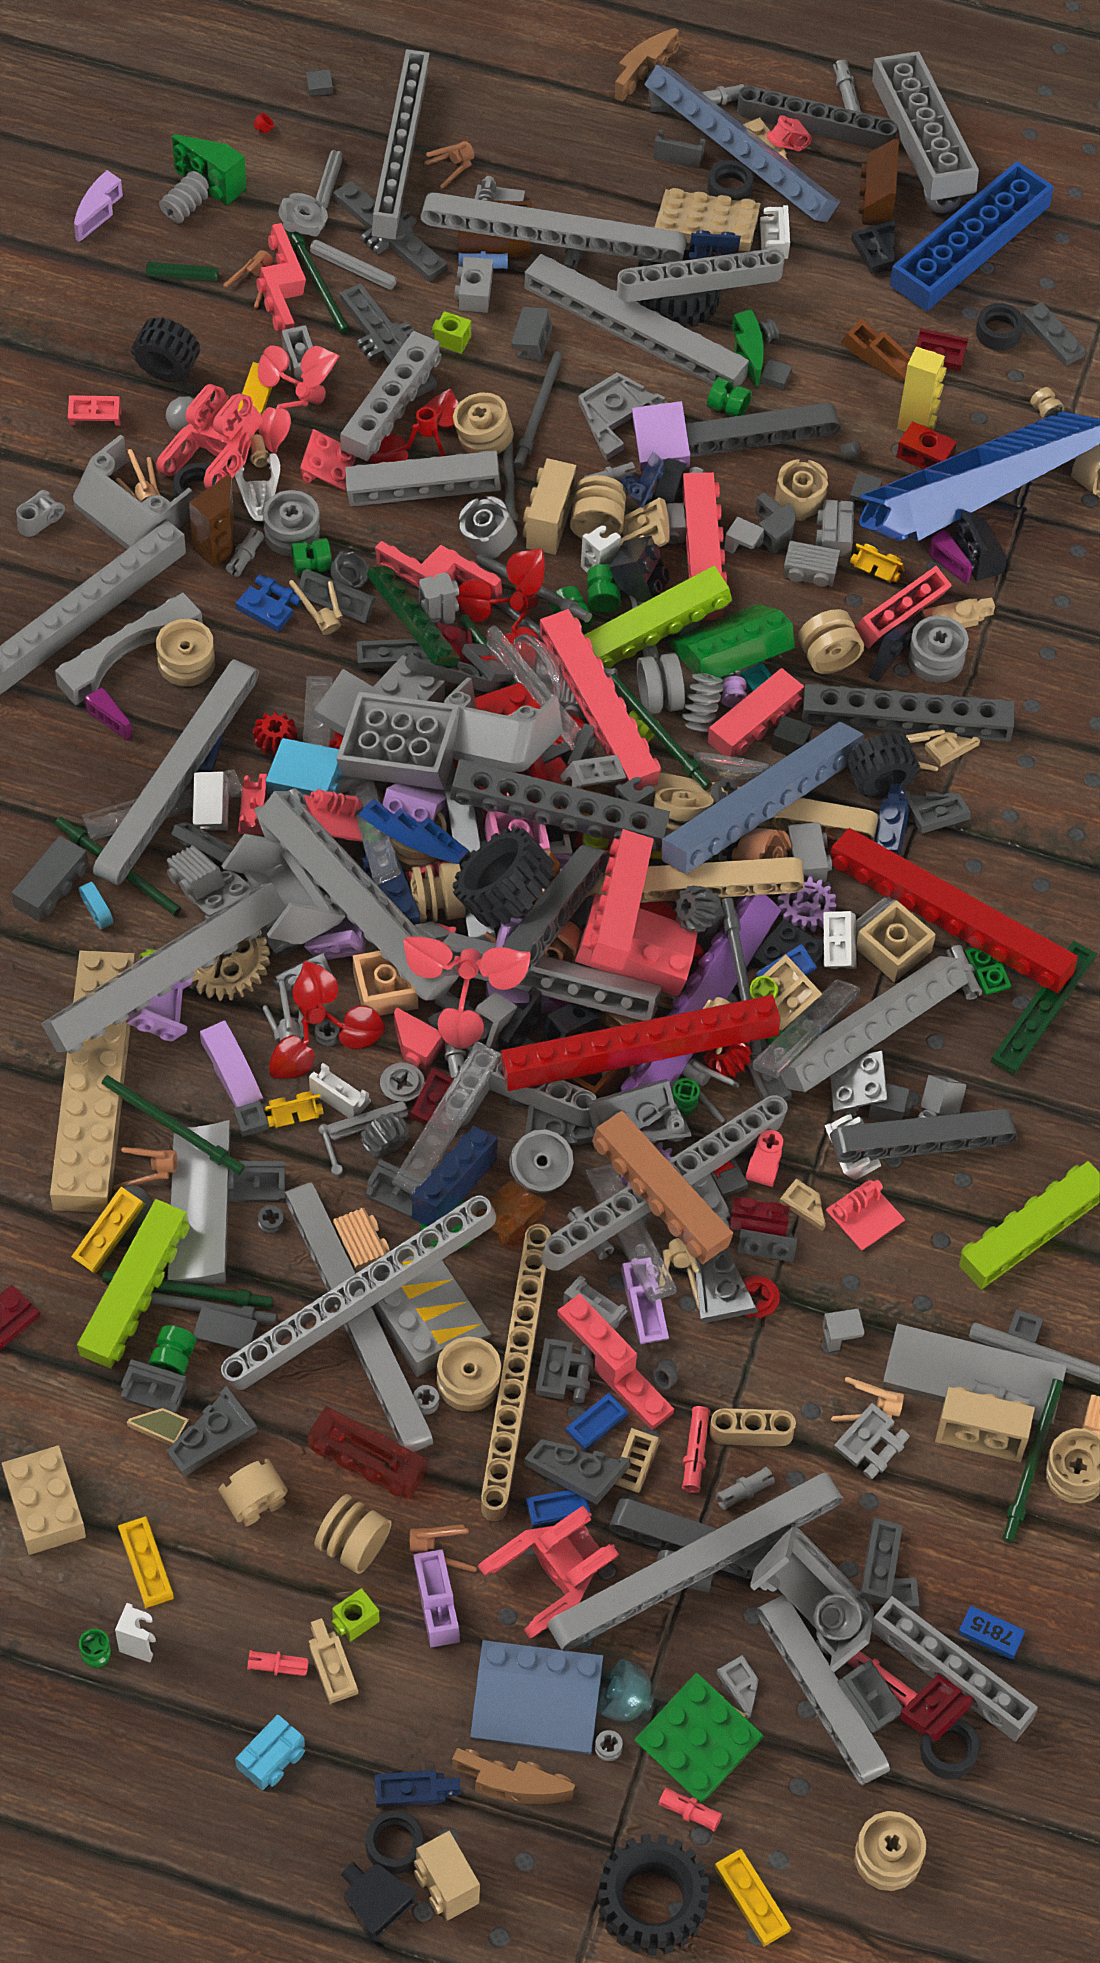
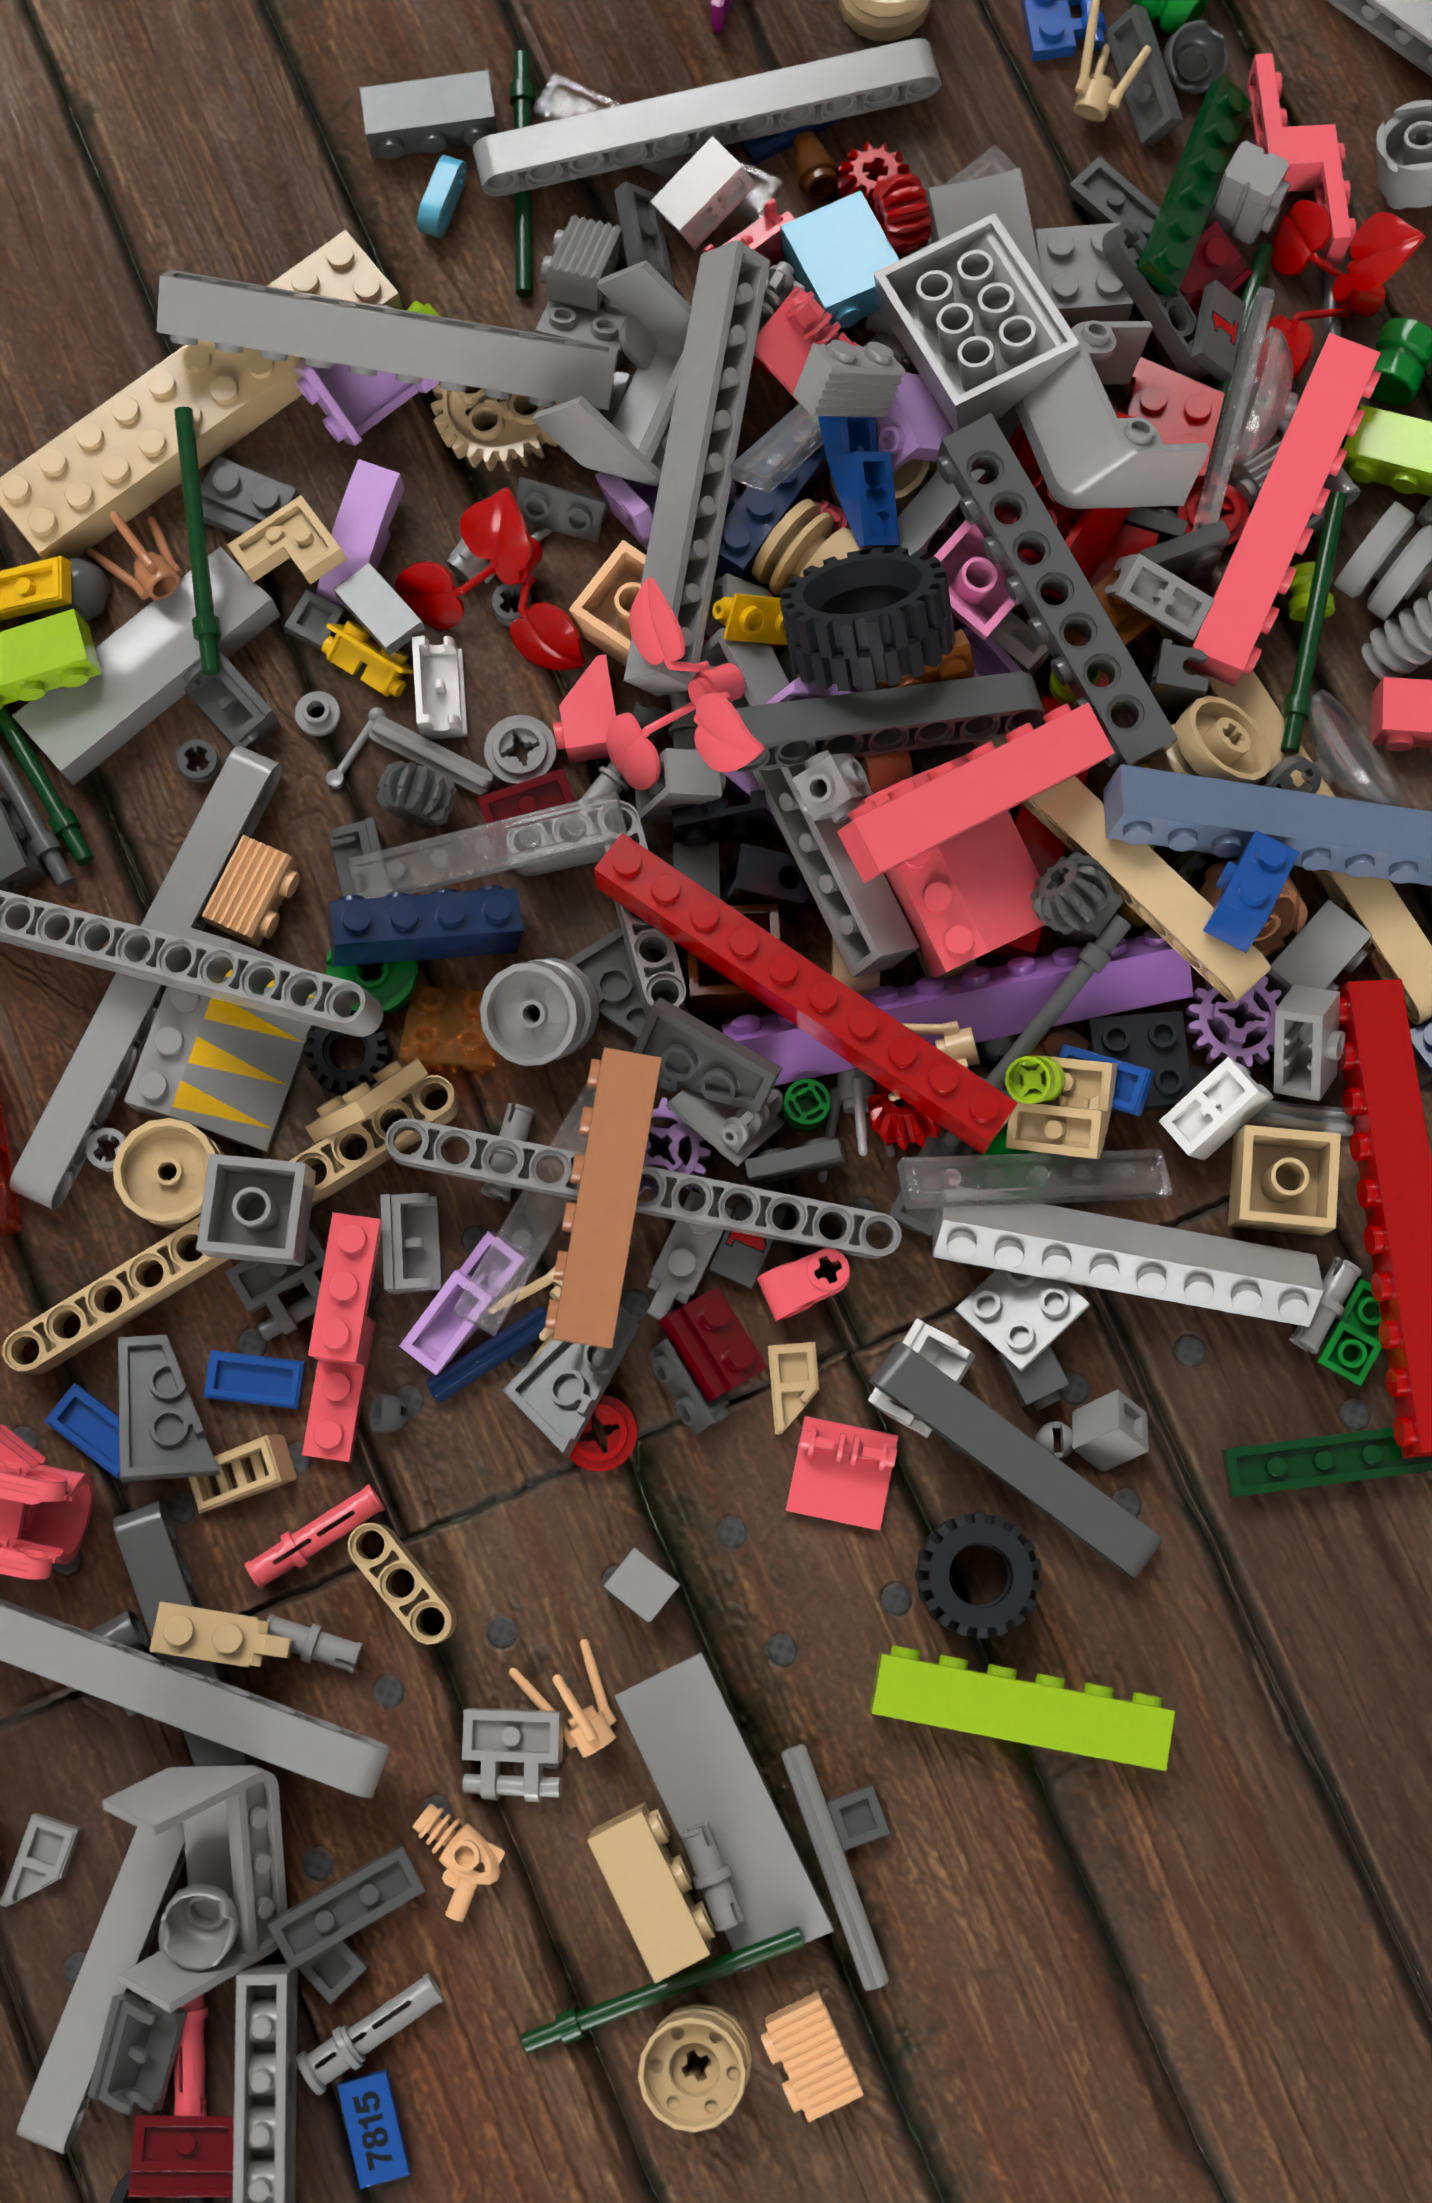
camera: 55 degrees right, 20 degrees up
(167, 1096) = (240, 497): none -> dark grey plate
(204, 1088) = (287, 534): none -> tan plate
(243, 751) = (814, 167): none -> reddish brown cone
(280, 1080) = (379, 609): none -> tile
(299, 1158) = (322, 725): none -> light grey plate
(310, 728) = (902, 212): none -> red gear
(385, 800) = (849, 380): none -> light grey brick
(452, 925) = (751, 619): none -> yellow hinge
(479, 1277) = (338, 1080): none -> black tyre
(517, 1257) = (365, 1100): none -> tan plate
(528, 1337) = (256, 1209): none -> light grey brick
(544, 593) = (1390, 346): dark grey bar -> none
(575, 953) = (831, 786): none -> light grey brick
(678, 1314) = (487, 1355): none -> dark blue axle
(709, 1513) = (215, 1636): none -> tan hinge
(710, 1115) = (783, 1164): none -> dark grey plate
(764, 837) = (1250, 890): none -> blue brick
(844, 881) = (1307, 1042): none -> light grey brick
(900, 1496) = (465, 1854): none -> light nougat piece
(945, 1610) = (345, 2043): none -> light grey pin
(965, 1173) = (1020, 1566): none -> black tyre

